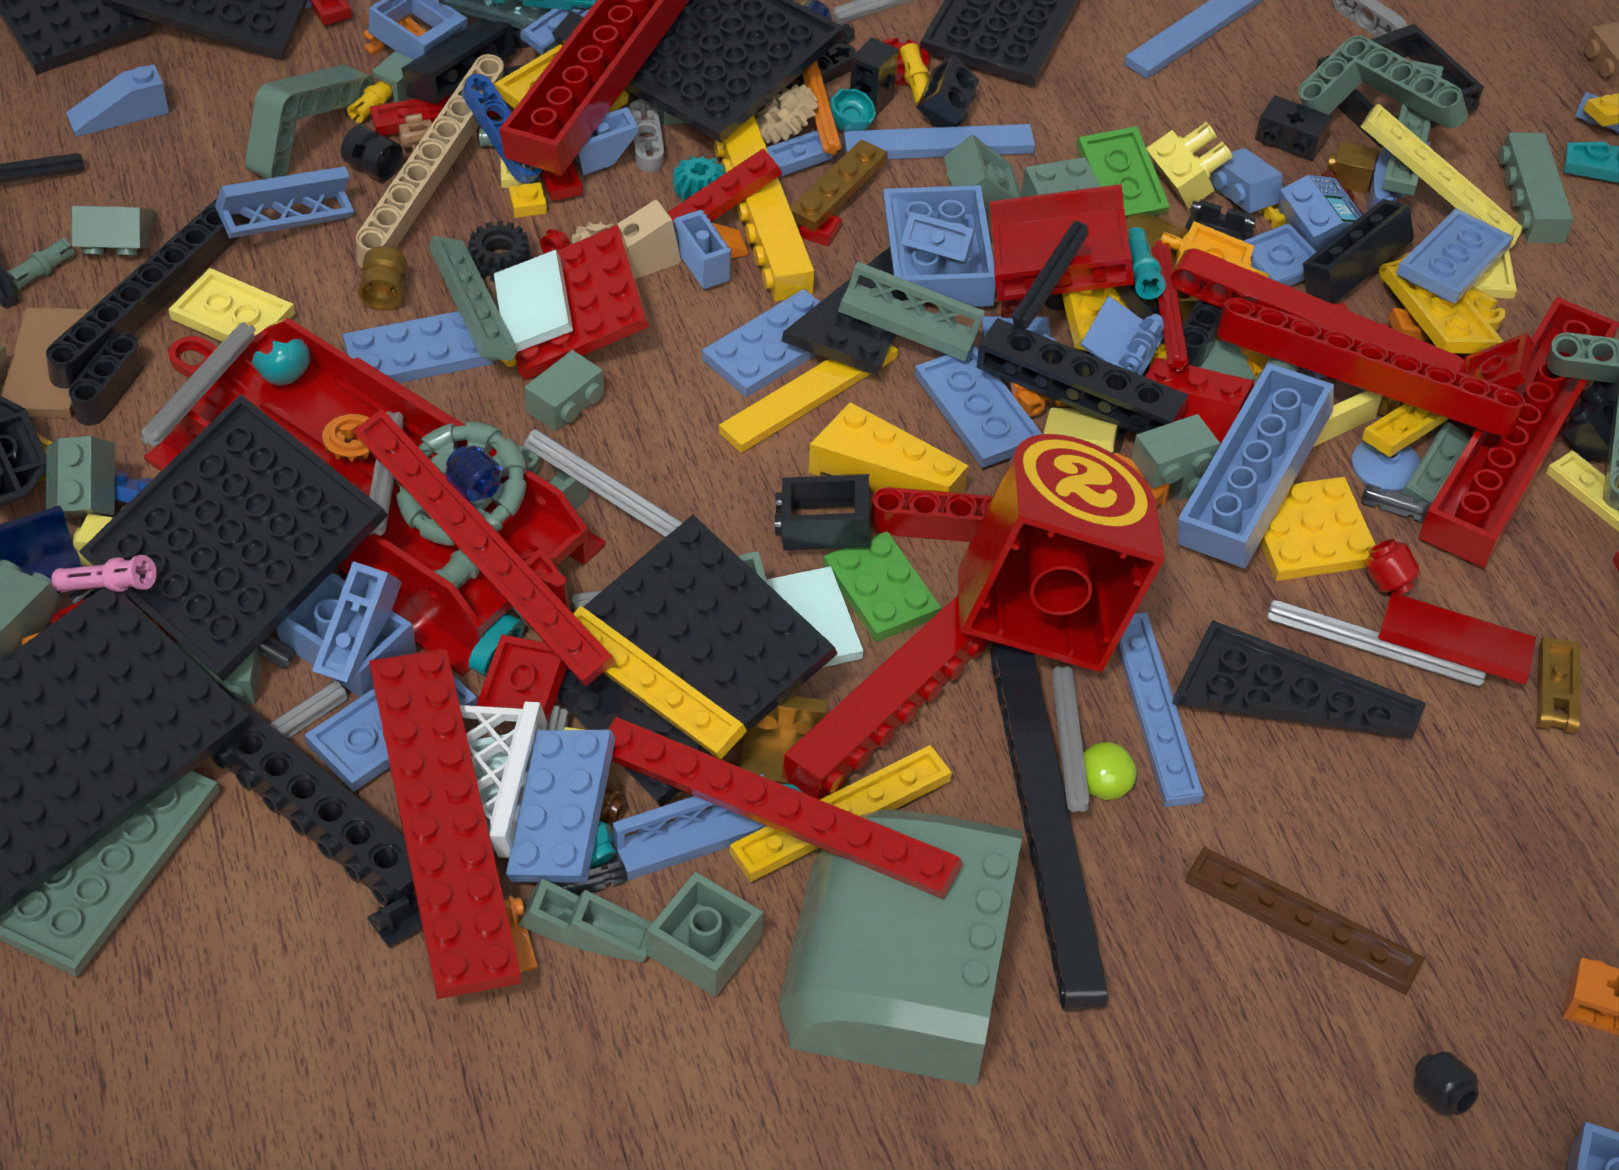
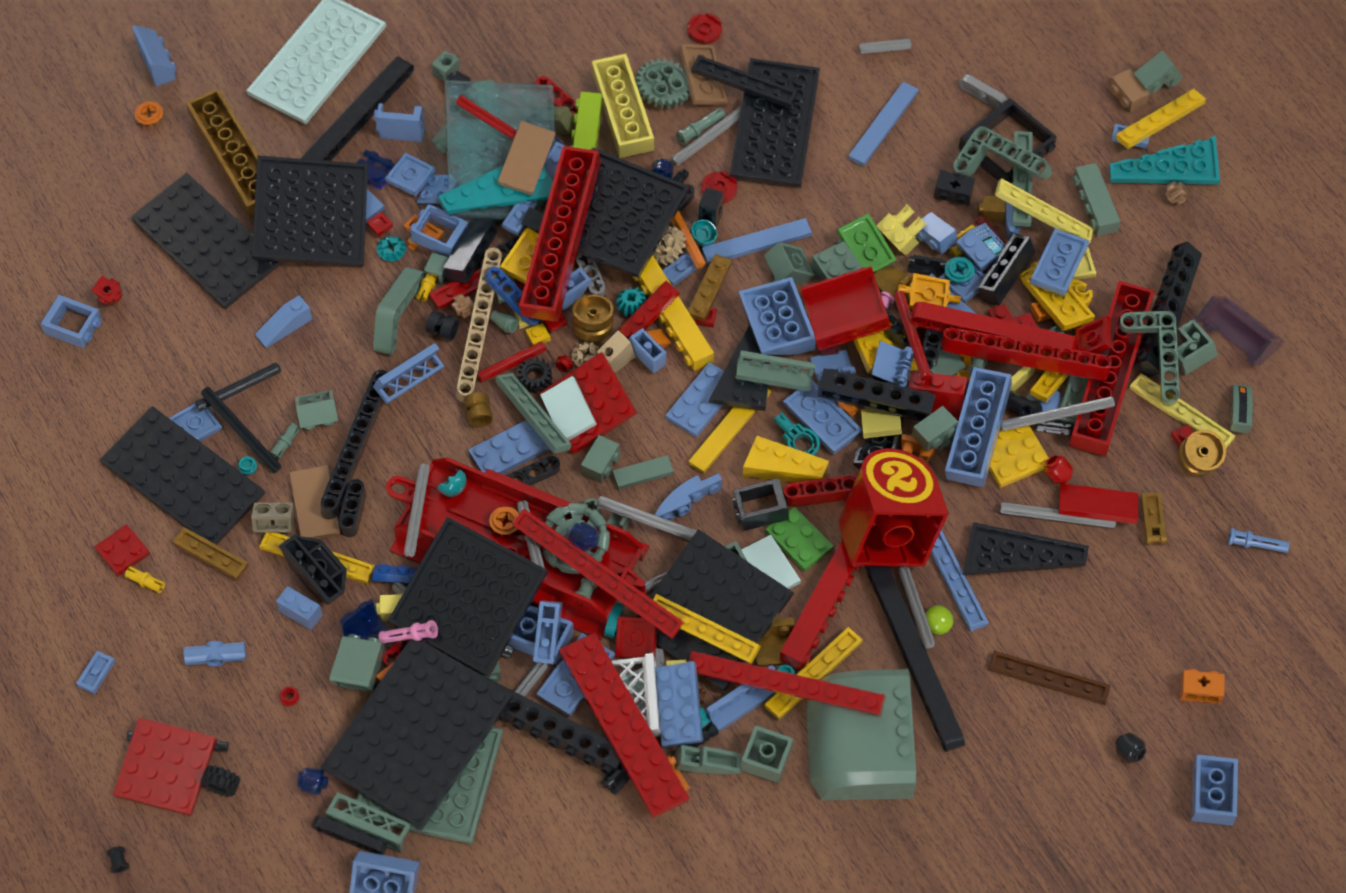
camera: 10 degrees left, 10 degrees up
(81, 476) = (367, 577): sand green slope -> none
(221, 303) = (402, 448): light yellow plate -> none
(325, 48) = (386, 253): none -> teal gear
(465, 226) = (511, 361): none -> red axle
(466, 379) = (523, 473): none -> black beam
(480, 170) = (506, 322): none -> sand green cone
(623, 183) = (593, 318): none -> pearl gold wheel
(633, 427) = (643, 472): none -> sand green tile
(703, 470) = (693, 490): none -> medium blue slope
(916, 73) = (733, 199): yellow pin -> none
(920, 419) = (799, 433): none -> teal pin
(938, 236) = (779, 321): medium blue plate -> none
(948, 93) = (755, 209): black brick -> none
(1050, 274) = (847, 337): black axle -> none
(1146, 269) = (895, 315): teal pin -> none
(1282, 229) = (963, 264): none -> teal gear
(1344, 455) = (1021, 404): none -> black piece
(1409, 471) = (1058, 413): none -> light grey axle

